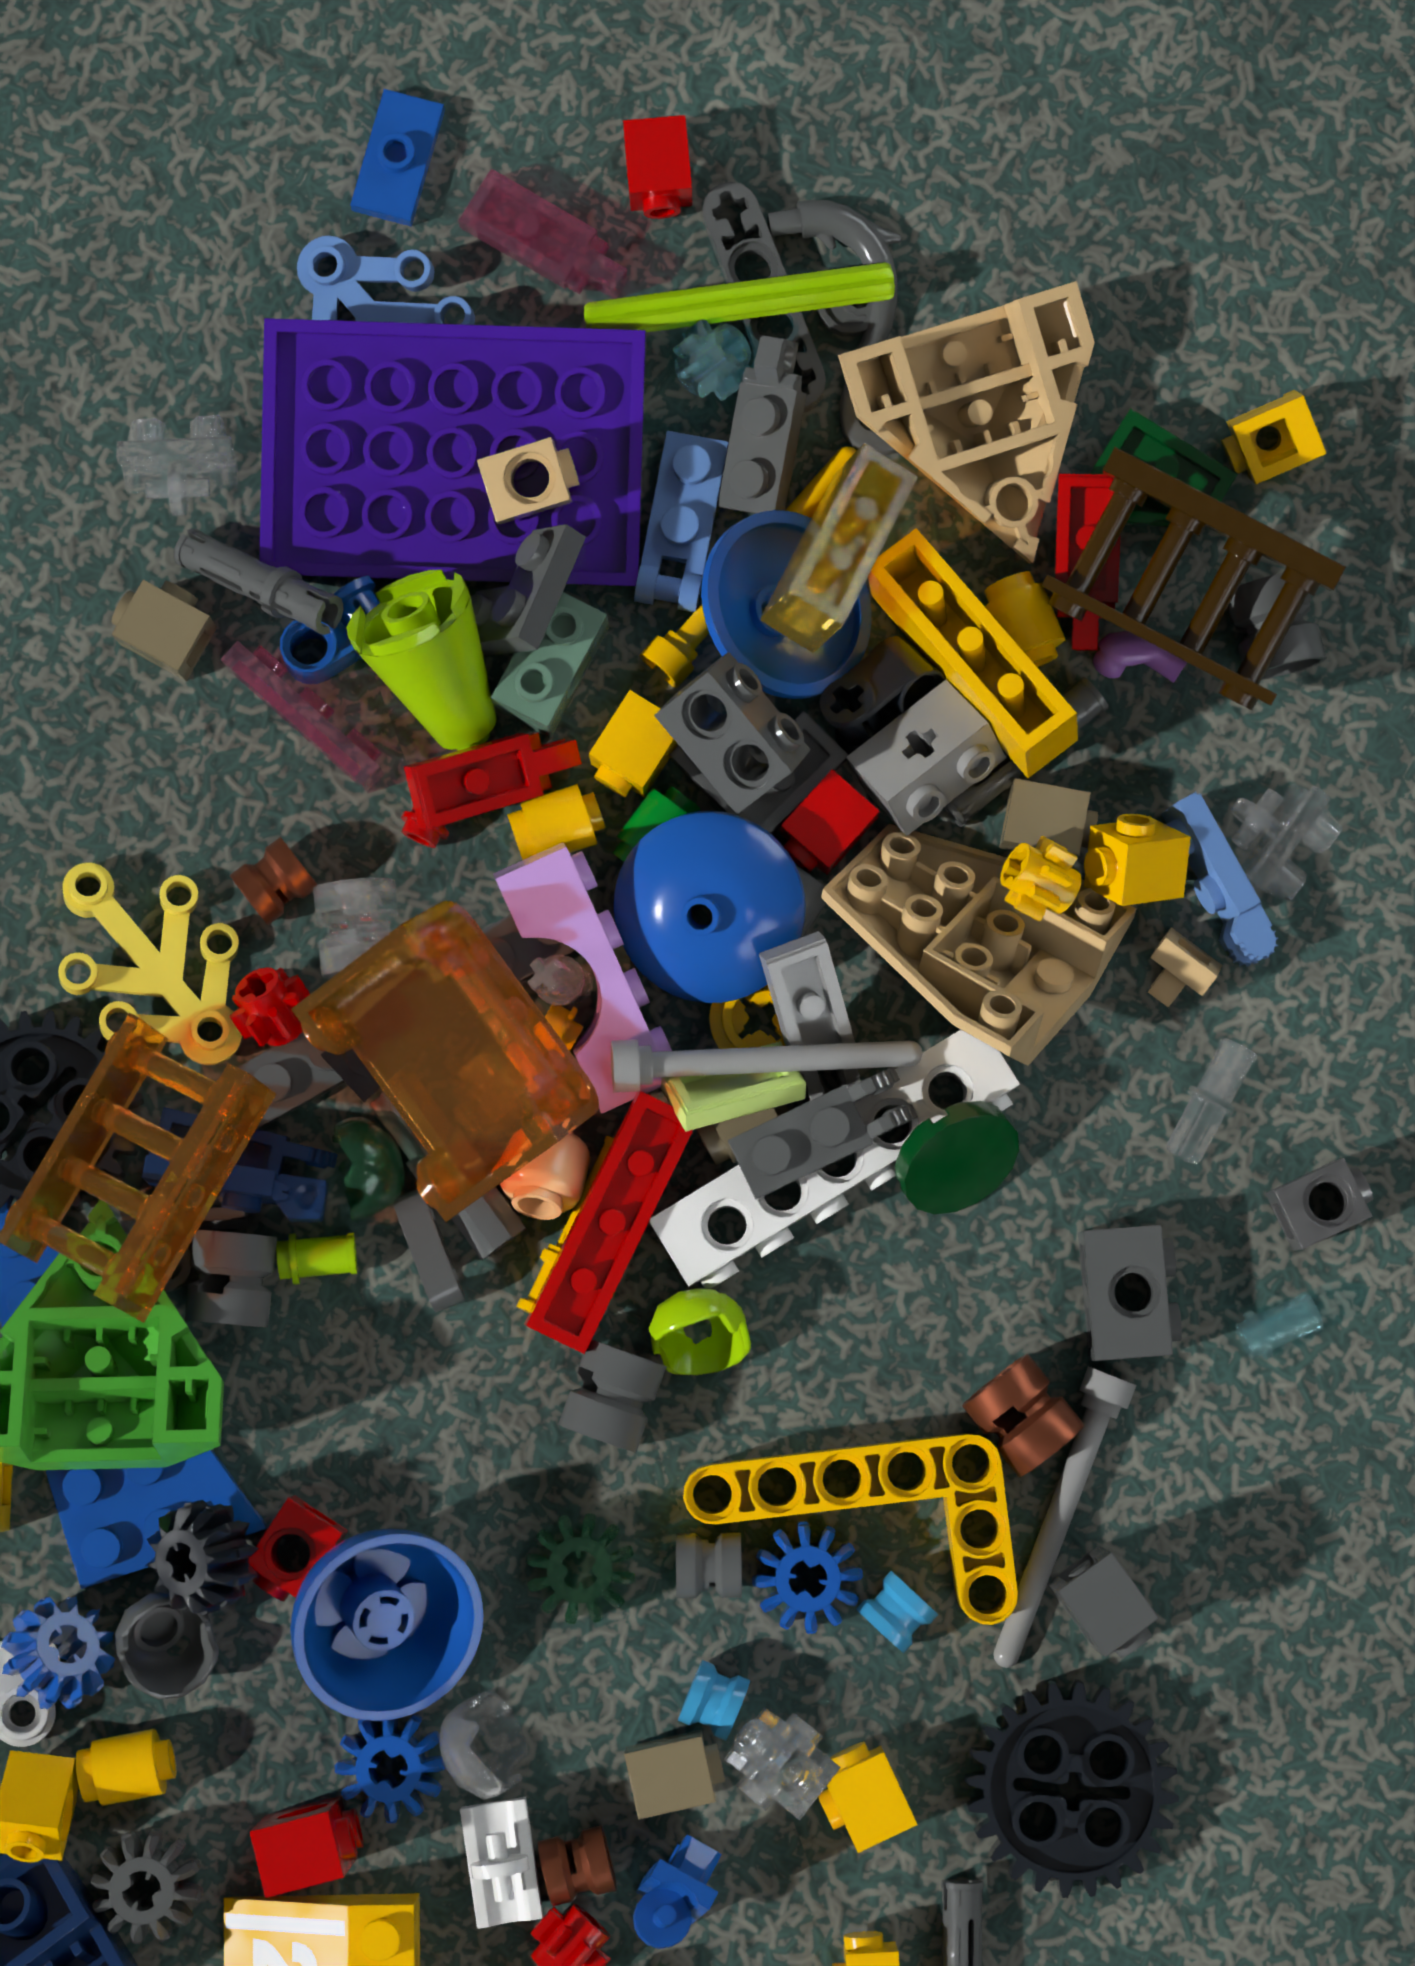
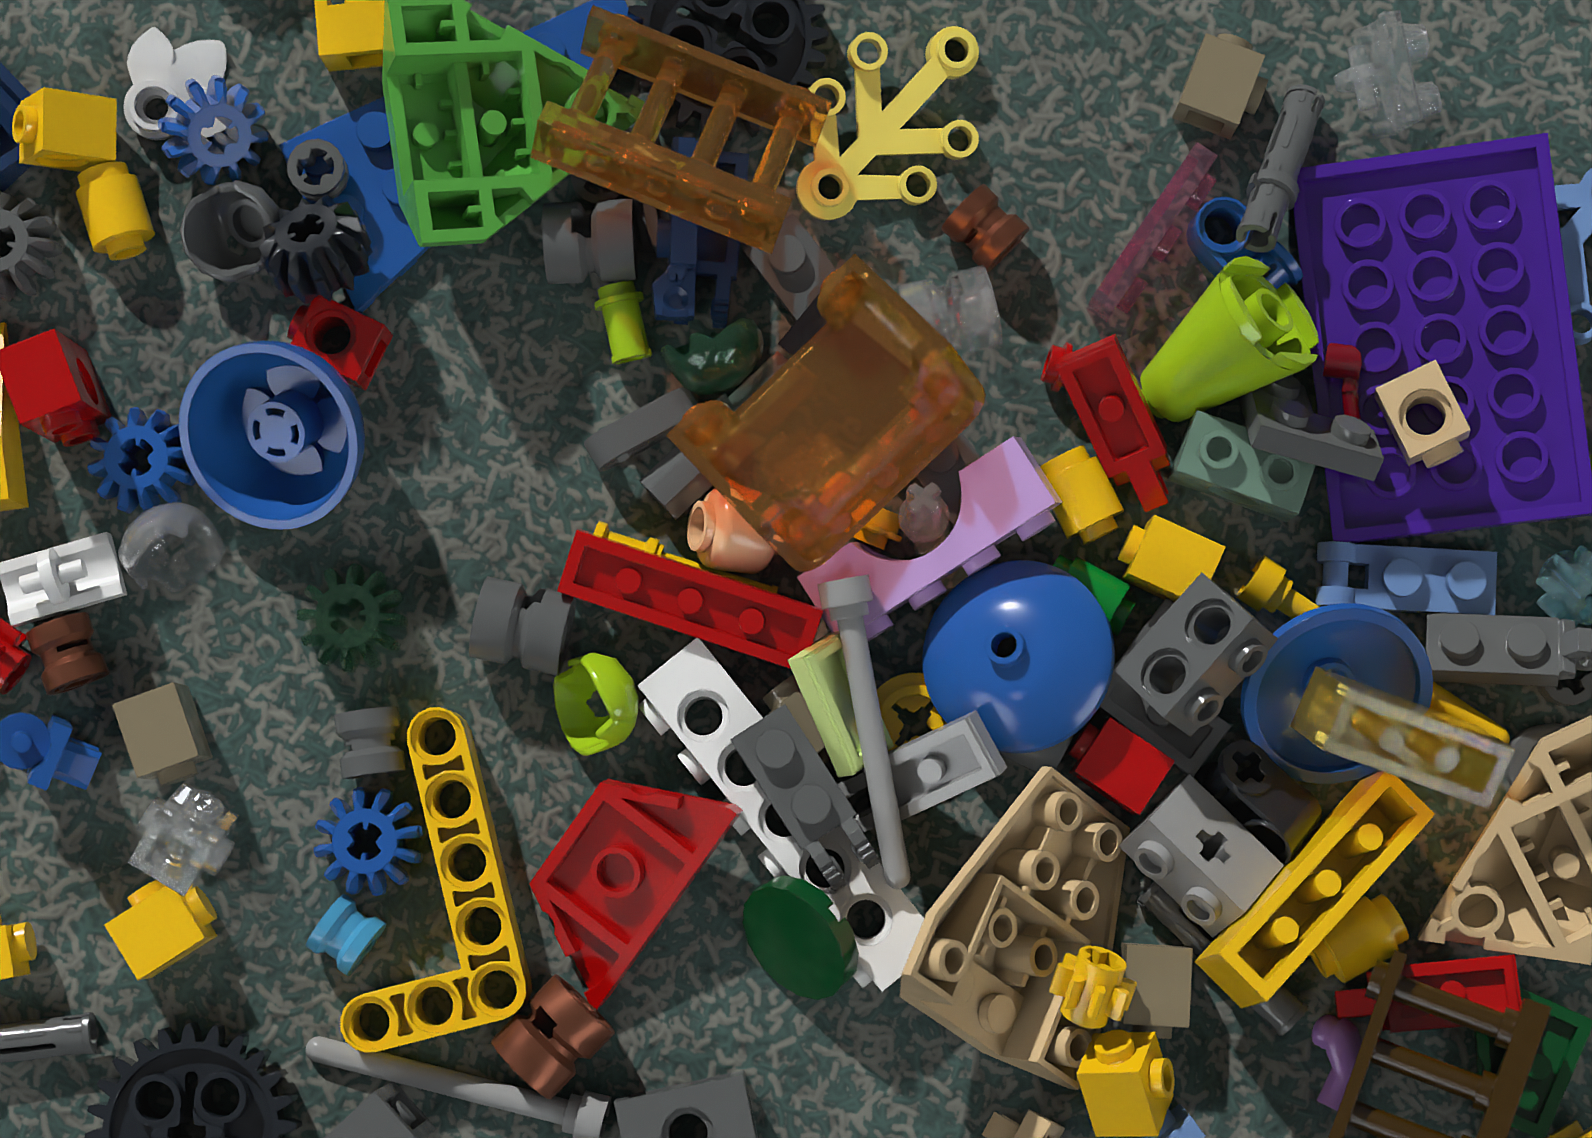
camera: 85 degrees right, 0 degrees up
(100, 1559) = (305, 156): none -> dark grey bush
(266, 1004) = (866, 233): red gear -> none
(463, 547) = (1345, 363): none -> dark red hand
(714, 1700) = (240, 765): dark azure wheel -> none
(871, 1324) = (624, 873): none -> red wing

